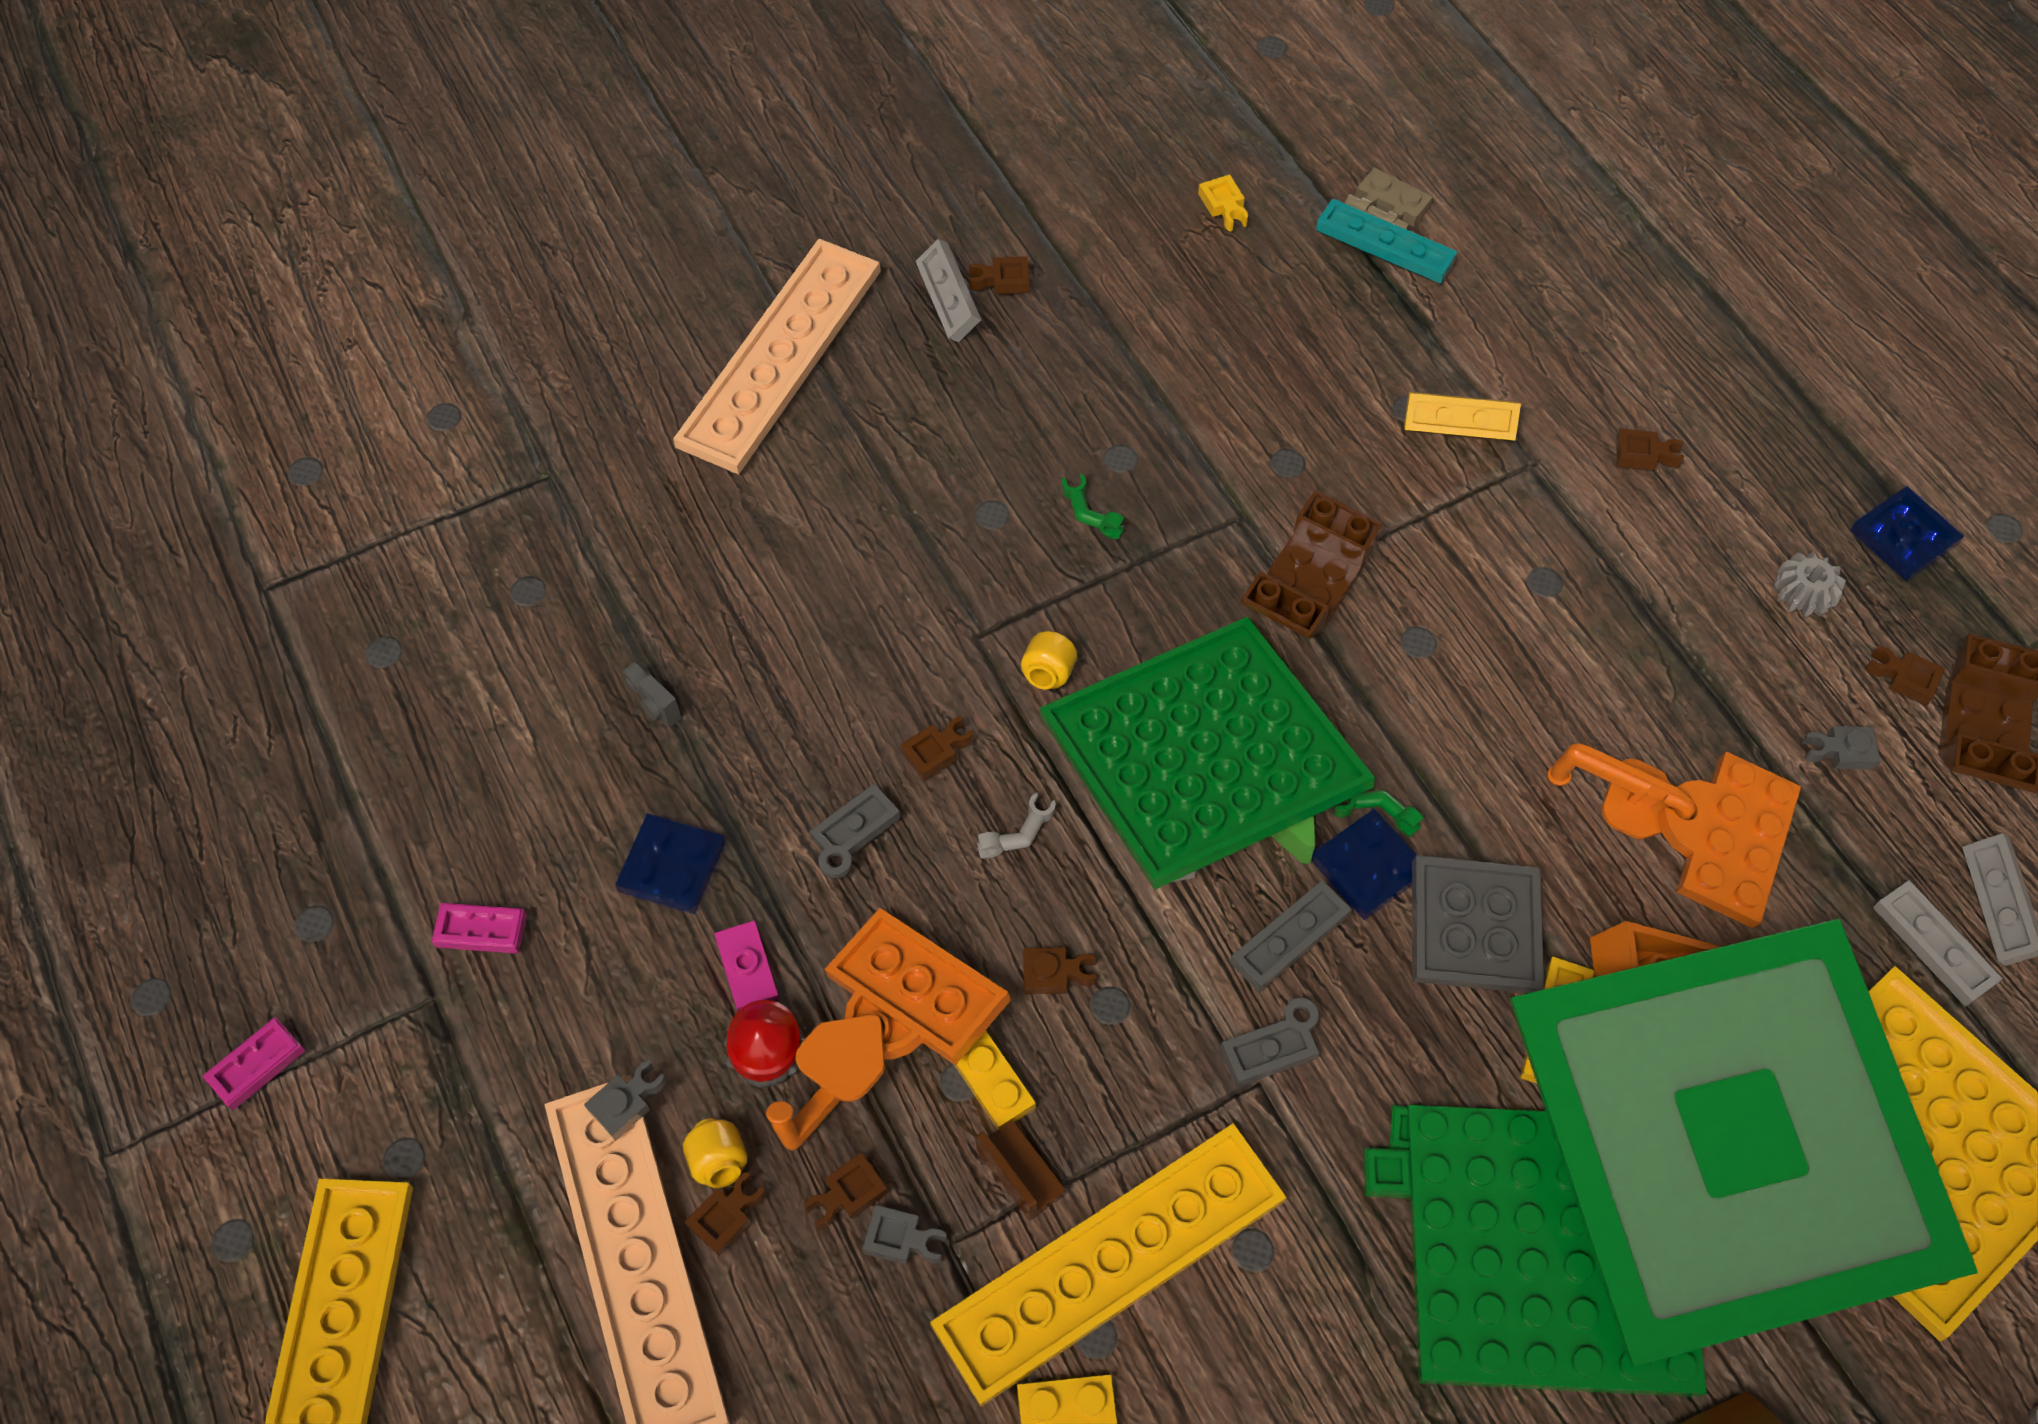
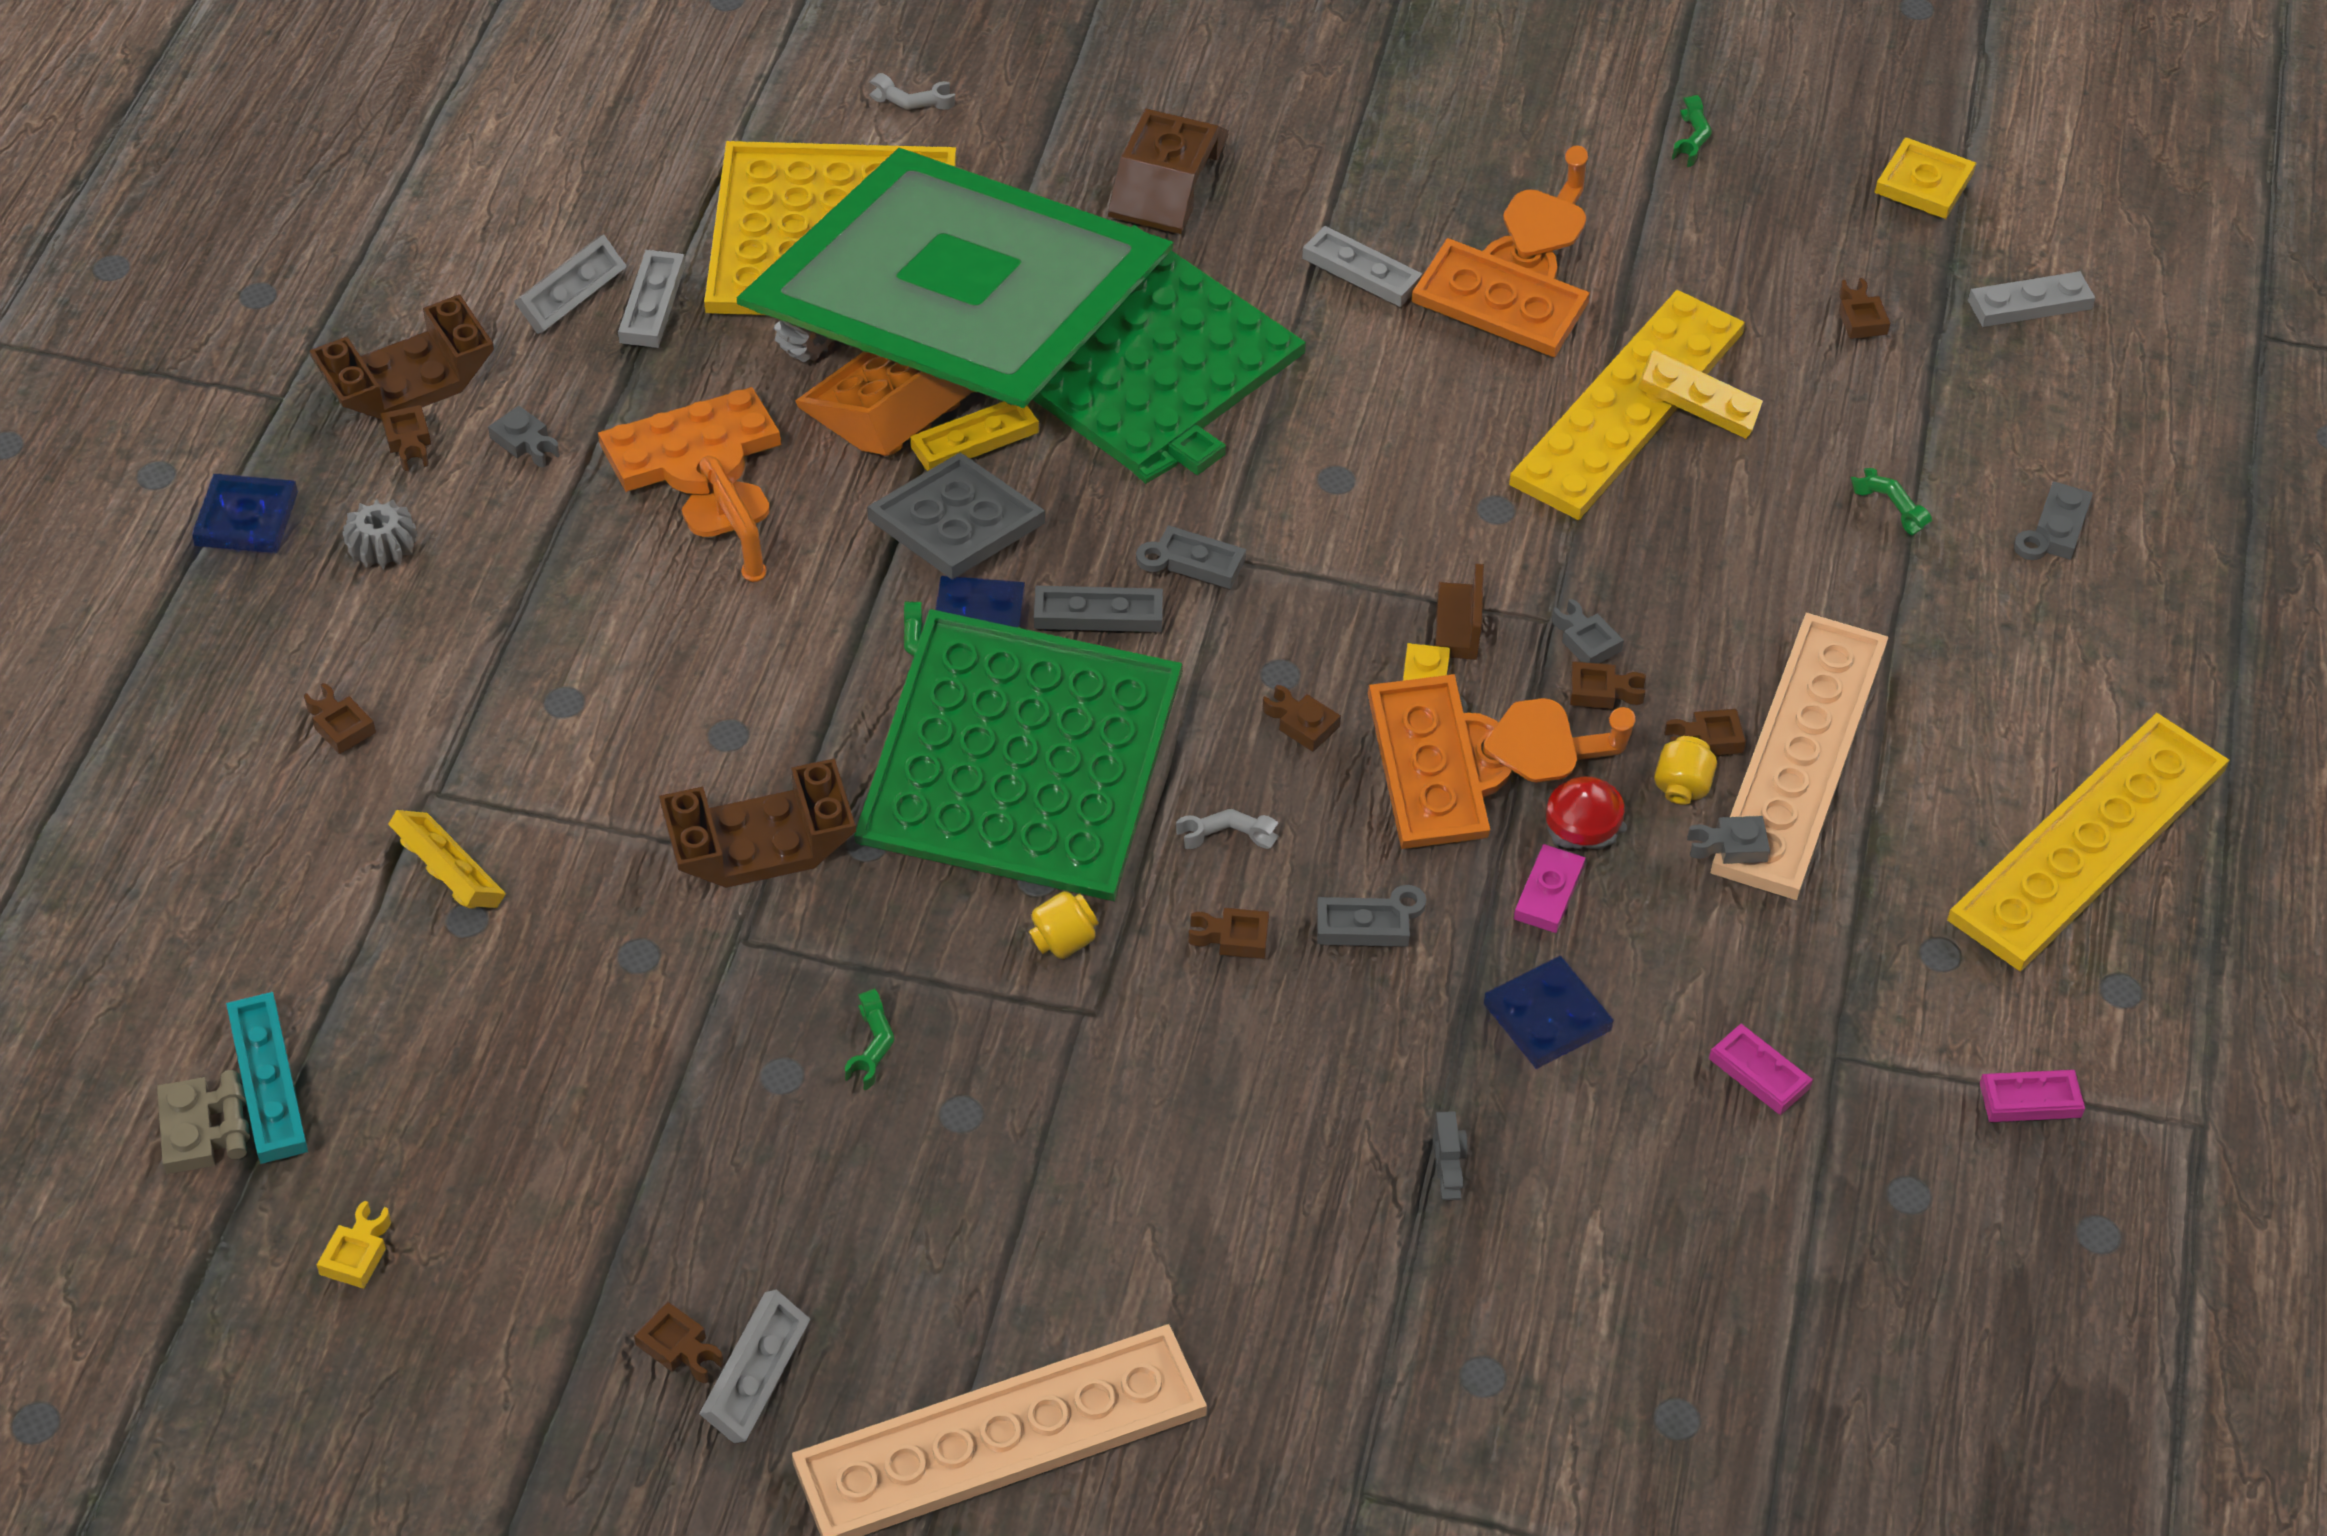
camera: 140 degrees left, 10 degrees down
(1106, 1264) = (1448, 526): yellow plate -> none

